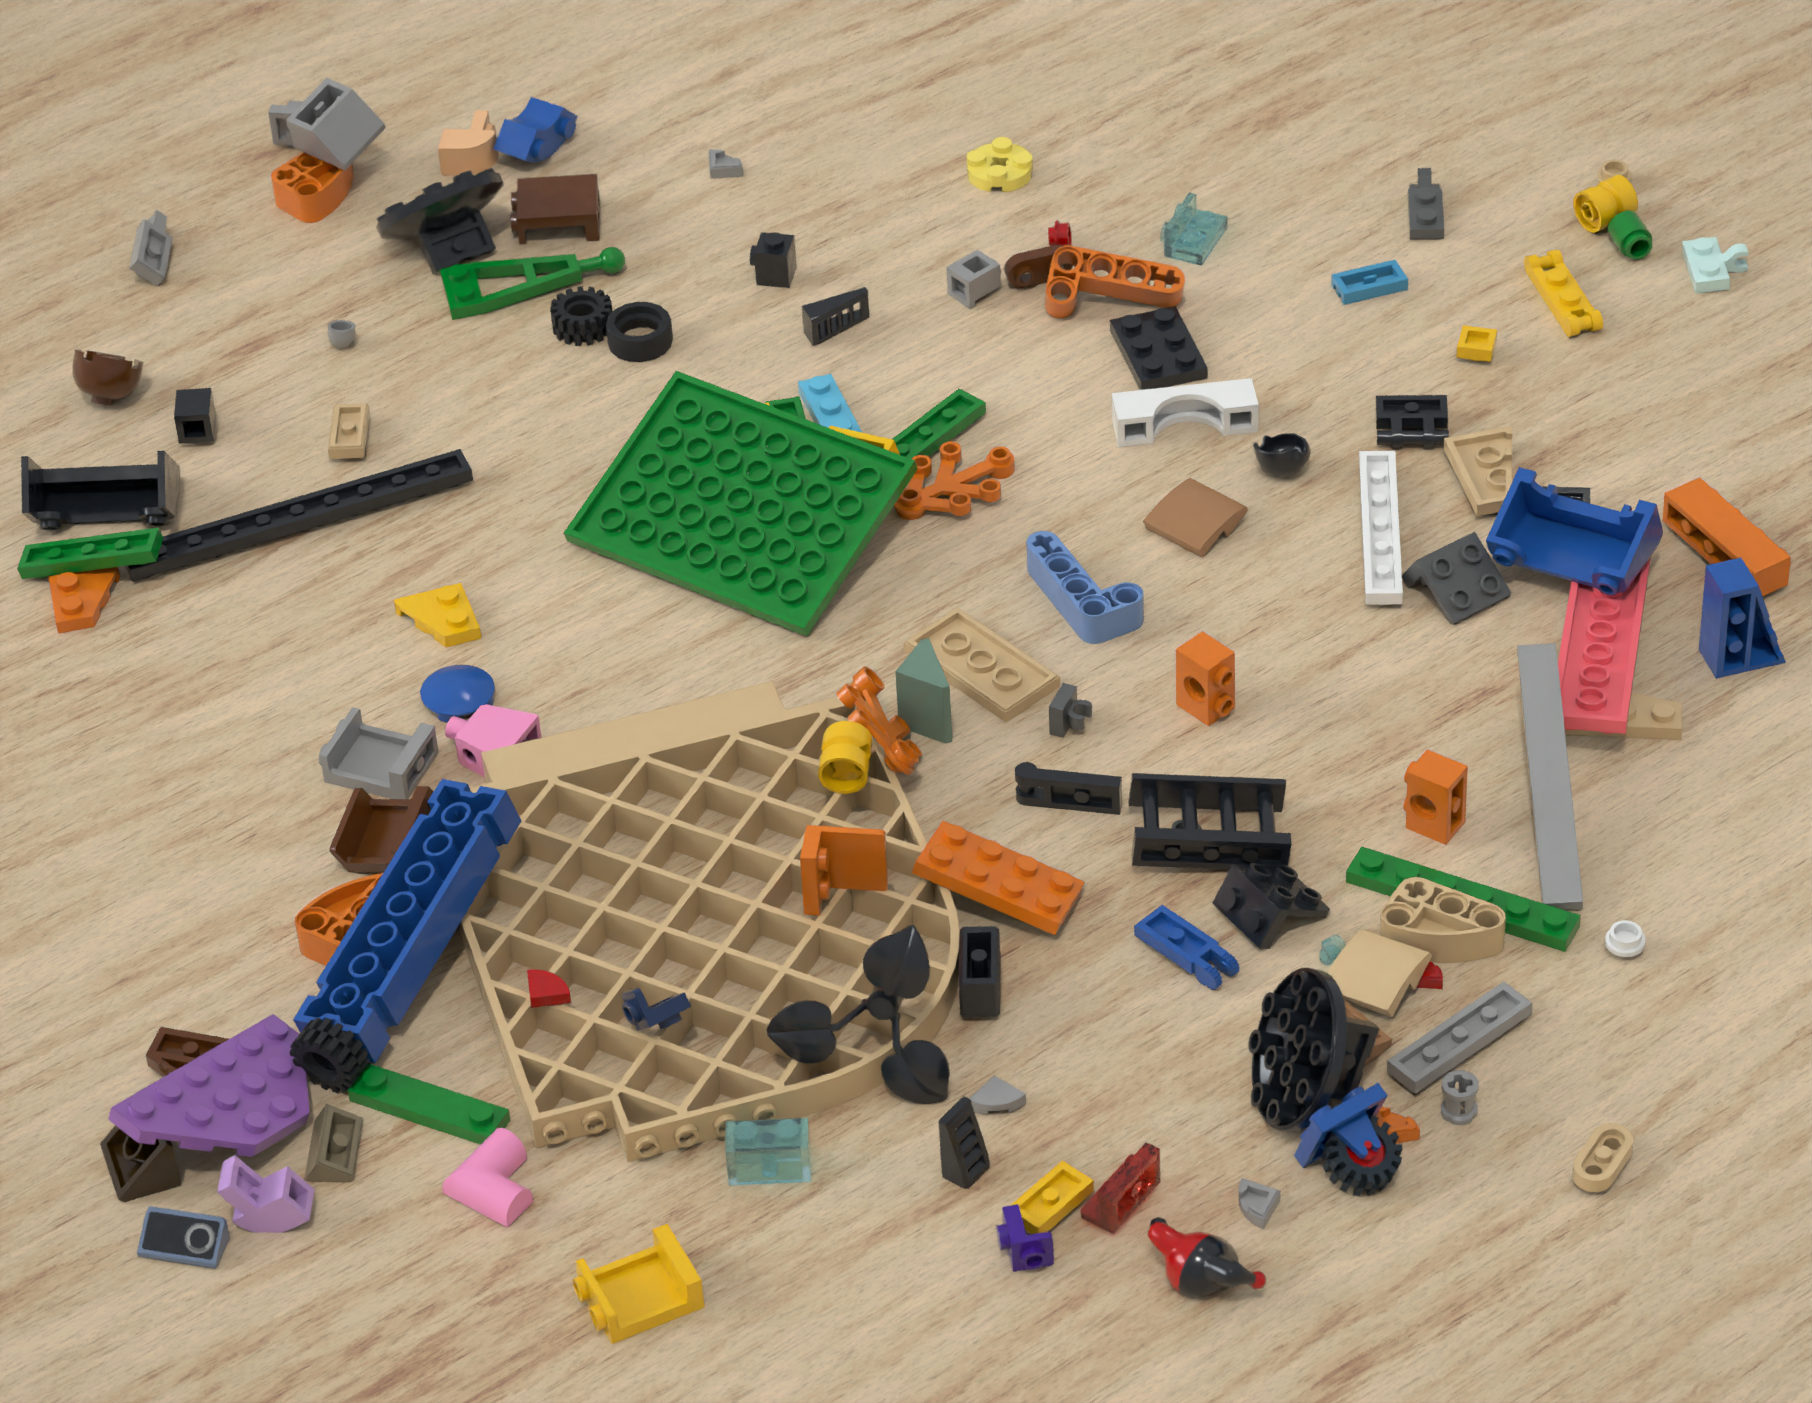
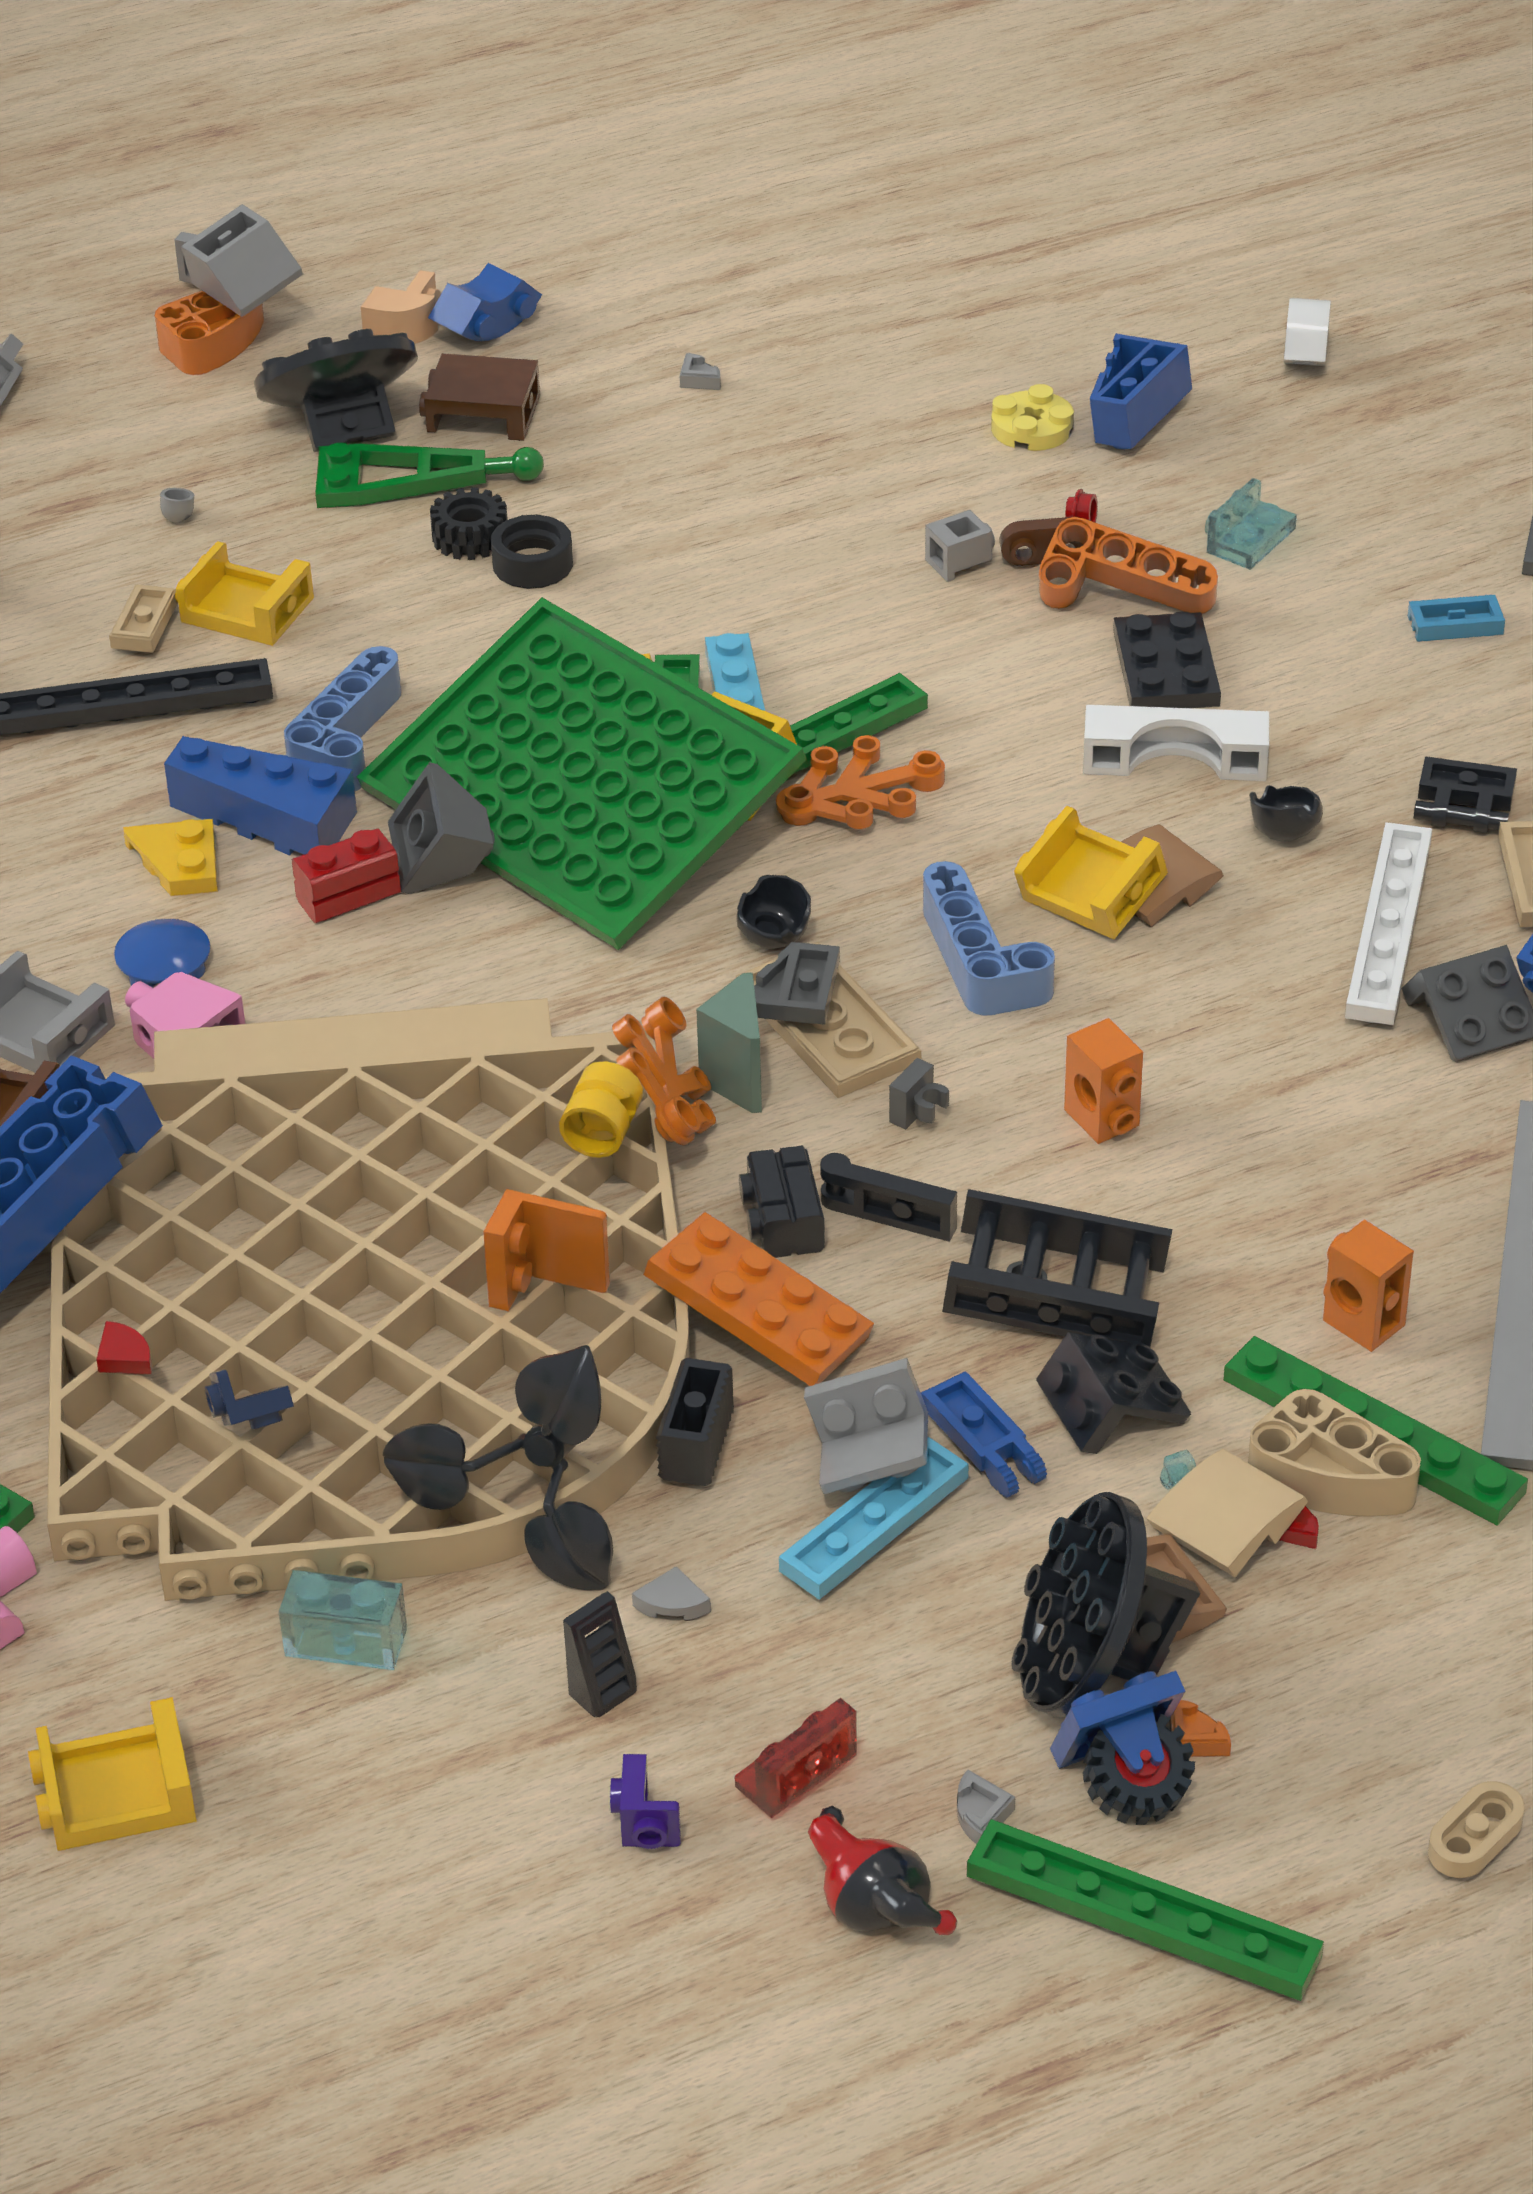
camera: 10 degrees right, 0 degrees up
(422, 403) = (242, 598): none -> yellow panel
(495, 557) = (262, 793): none -> blue wedge
(528, 504) = (345, 710): none -> medium blue beam
(582, 610) = (346, 875): none -> red brick
(645, 566) = (438, 832): none -> dark grey slope
(774, 259) = (721, 489): black brick -> none
(817, 319) = (759, 555): black slope -> none
(920, 589) = (774, 912): none -> black hair
(958, 639) = (798, 983): none -> dark grey wing
(992, 804) = (783, 1201): none -> black brick
(1053, 1197) = (701, 1752): yellow plate -> none
(1079, 130) = (1138, 389): none -> blue wedge
(1106, 954) = (869, 1426): none -> light grey bracket
(1125, 1018) = (870, 1522): none -> medium azure plate
(1149, 525) = (1089, 874): none -> yellow panel
(1198, 64) = (1307, 331): none -> white brick
(1390, 1248) = (1146, 1909): none -> green plate
(1453, 1099) = (1310, 1698): light grey bush -> none
(1459, 1037) = (1318, 1621): light grey plate -> none

